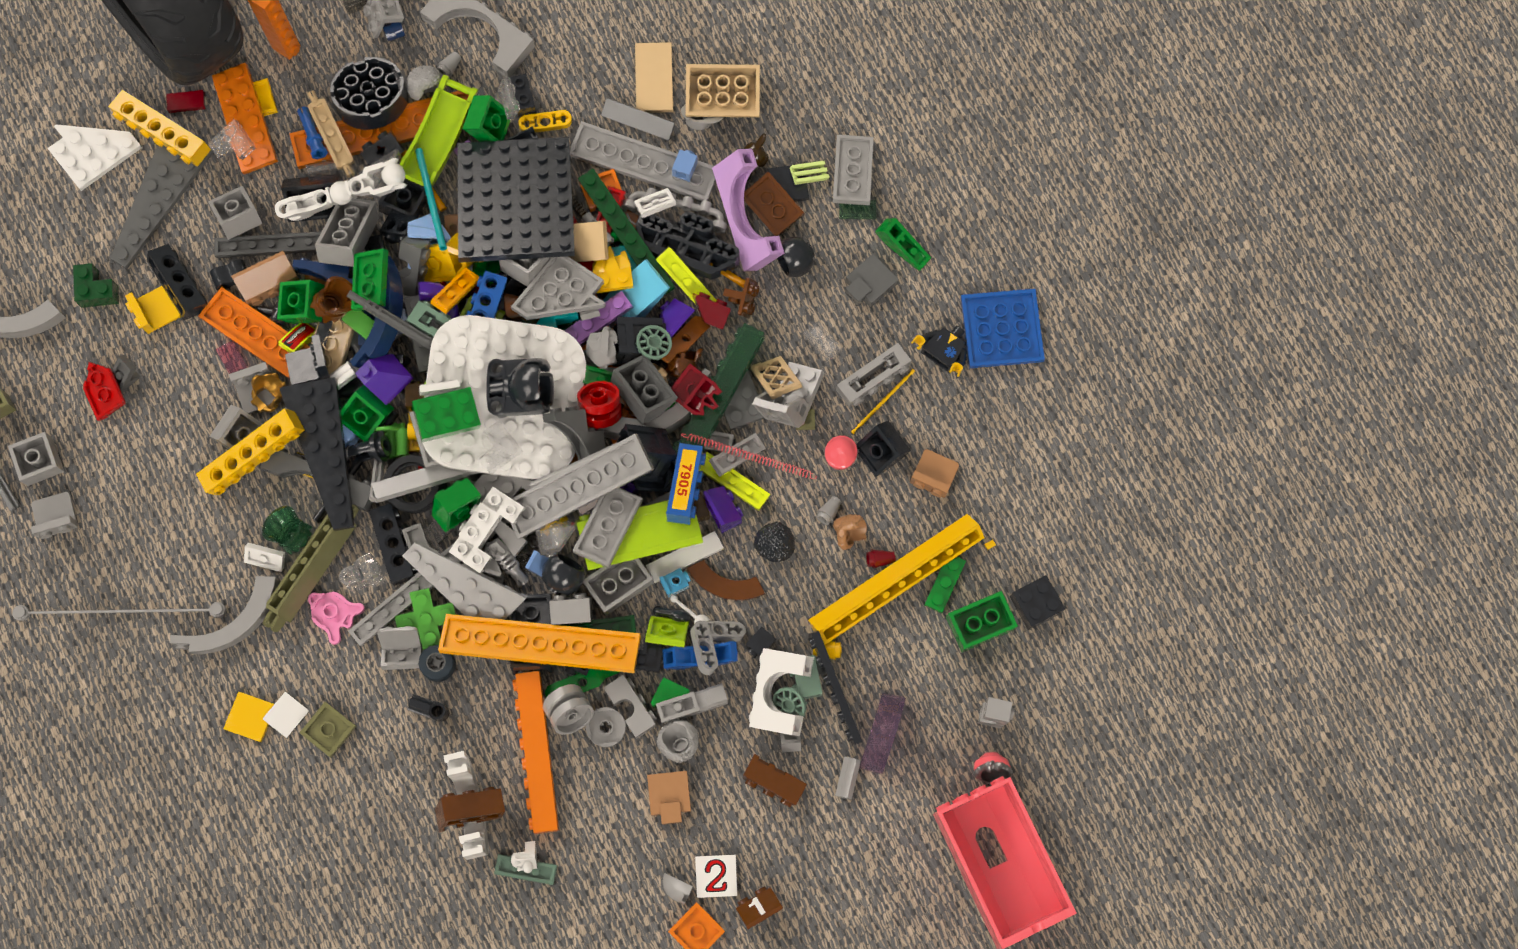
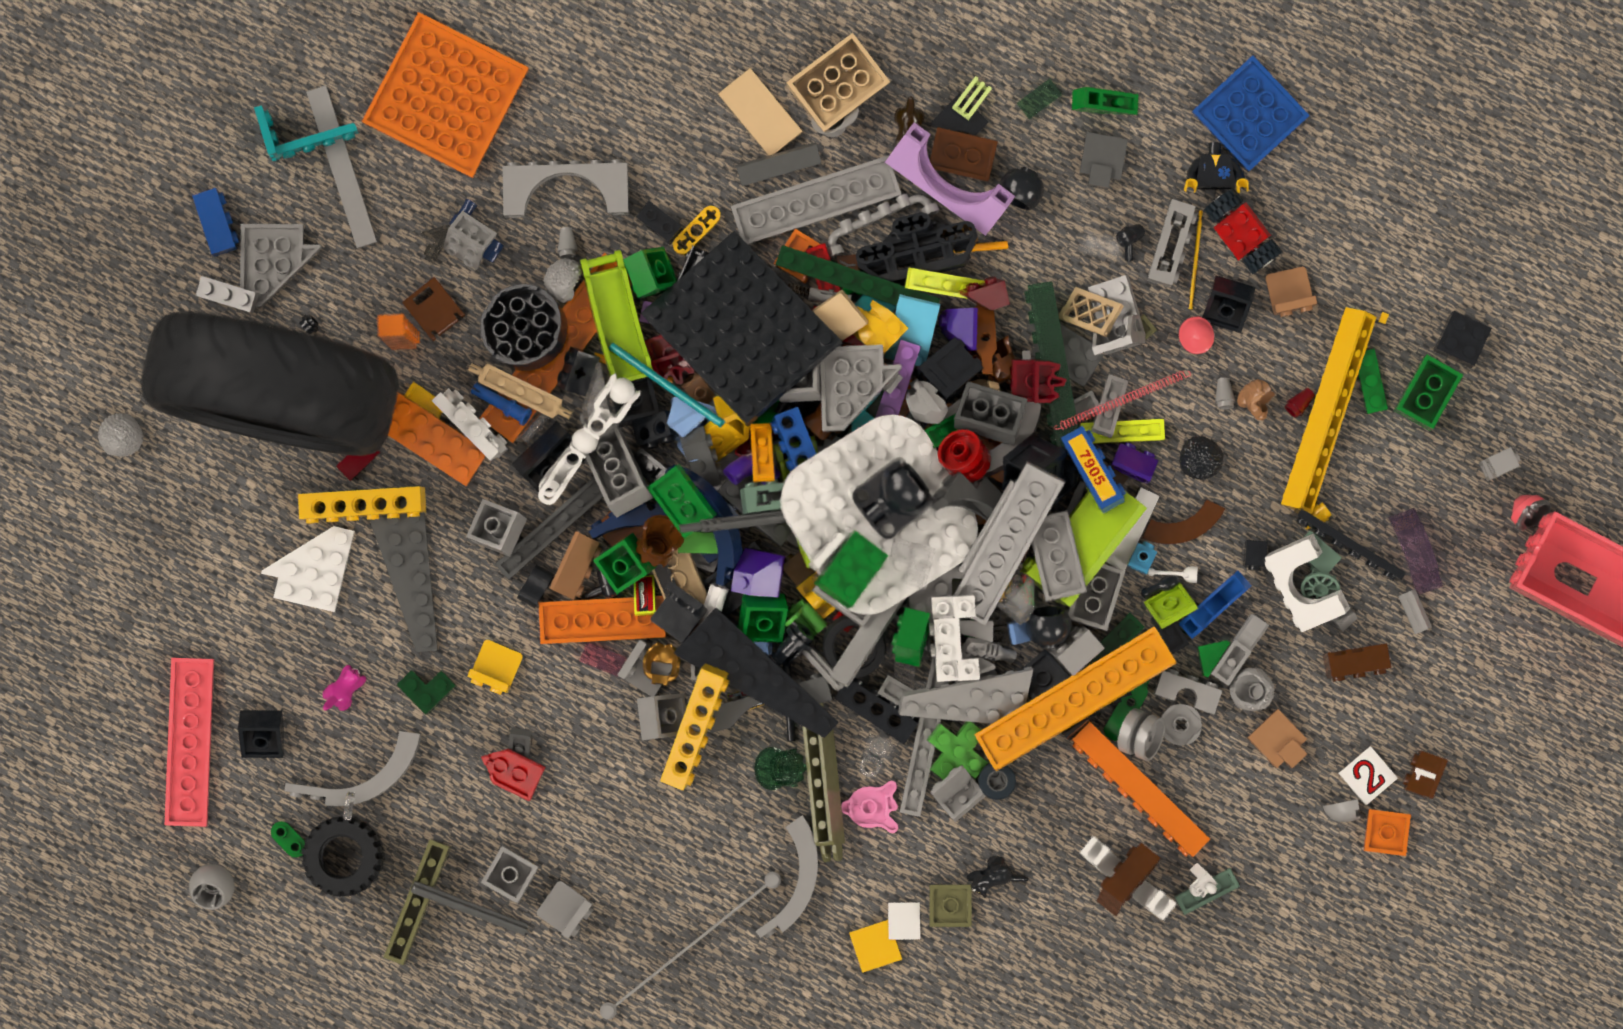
camera: 30 degrees left, 10 degrees up
(33, 245) = (340, 692): none -> dark pink animal
(186, 306) = (502, 638): black brick -> none
(233, 138) = (434, 460): clear plate -> none
(264, 557) = (776, 805): white plate -> none
(276, 116) = (476, 430): none -> white bracket
(322, 43) = (434, 312): none -> reddish brown container
(380, 732) = (995, 874): none -> black animal
(427, 708) = (1017, 824): black piece -> none
(448, 190) = (666, 360): none -> dark red plate
(506, 96) = (649, 236): clear plate -> none
(653, 342) = (967, 365): sand green wheel -> none
(655, 205) = (852, 249): white tile -> none
(684, 165) = (859, 177): medium blue brick -> none
(707, 639) = (1210, 584): light grey beam -> none
(744, 299) = (1002, 263): reddish brown bracket -> none
(845, 346) = (1128, 237): none -> black piece
(853, 170) = (1008, 66): light grey plate -> none
(932, 403) = (1242, 231): none -> plate

